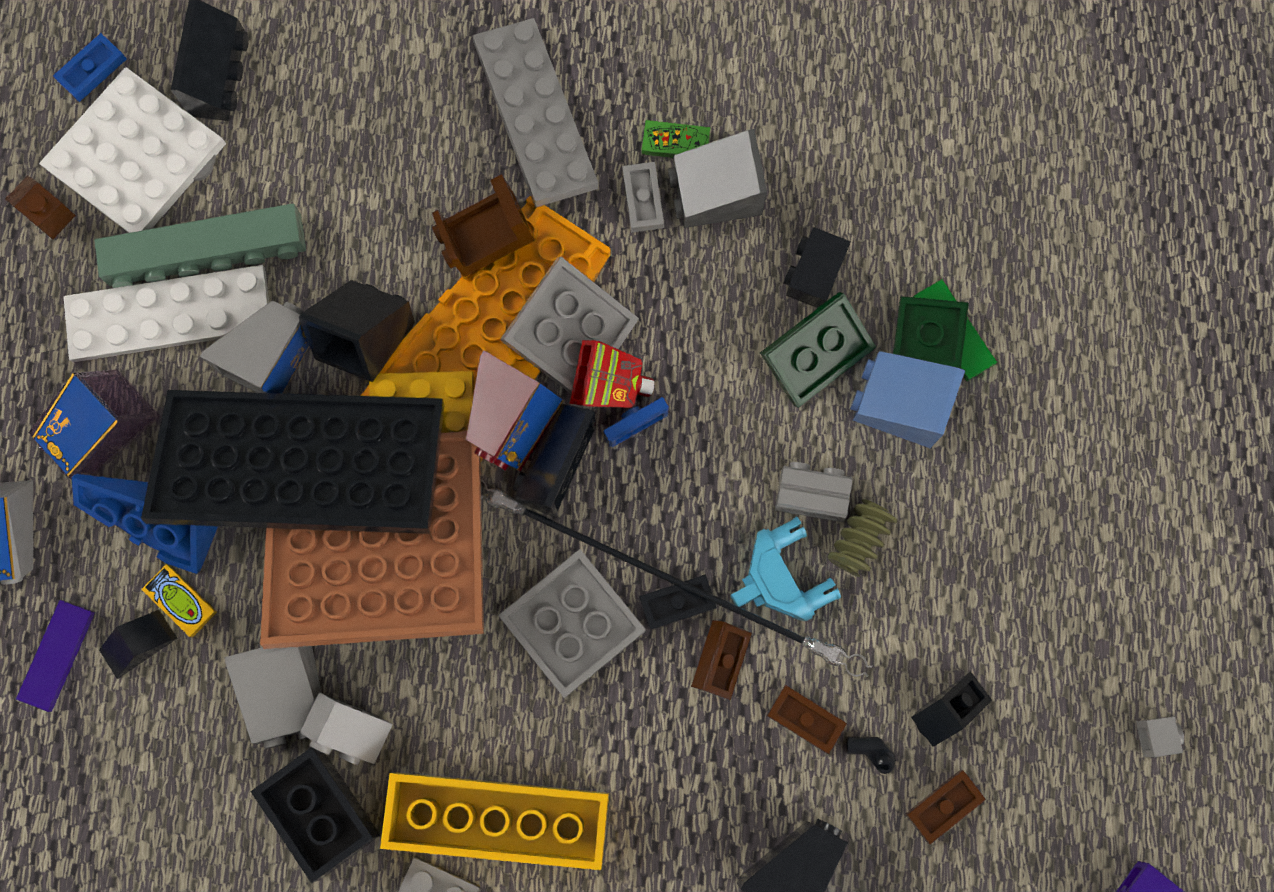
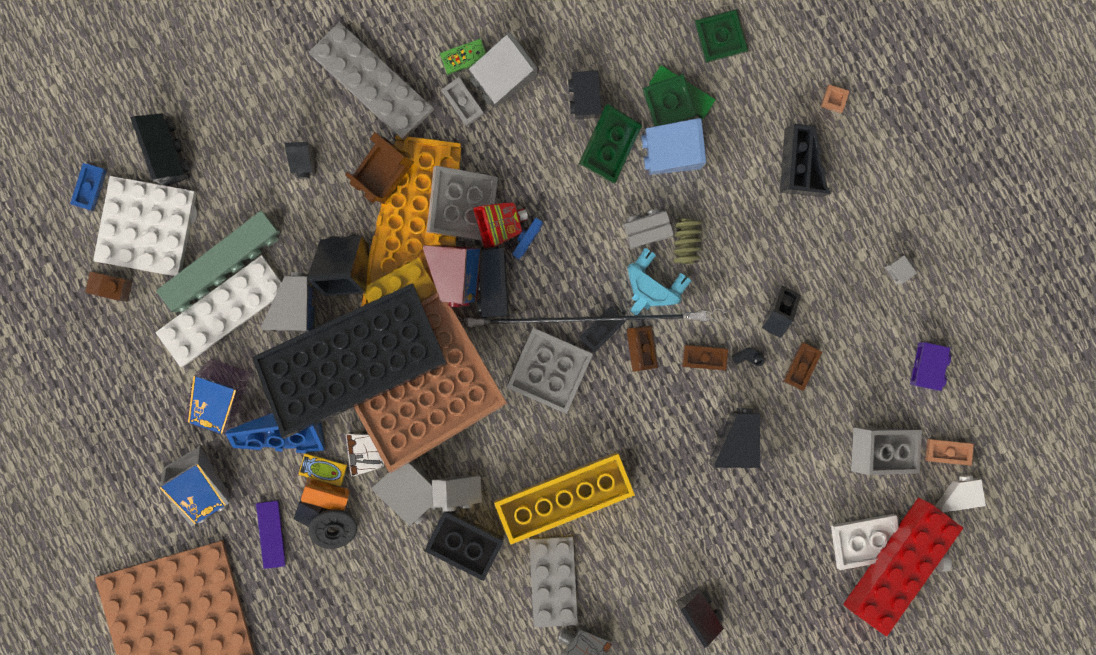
camera: 30 degrees left, 10 degrees up
(152, 675) = (332, 540): none -> black wheel
(159, 637) = (325, 495): none -> orange slope
(241, 605) = (362, 454): none -> white torso
(385, 163) = (301, 159): none -> black slope
(1045, 282) = (721, 36): none -> dark green tile
(1082, 509) = (801, 163): none -> black wedge
(1170, 443) = (834, 98): none -> nougat plate

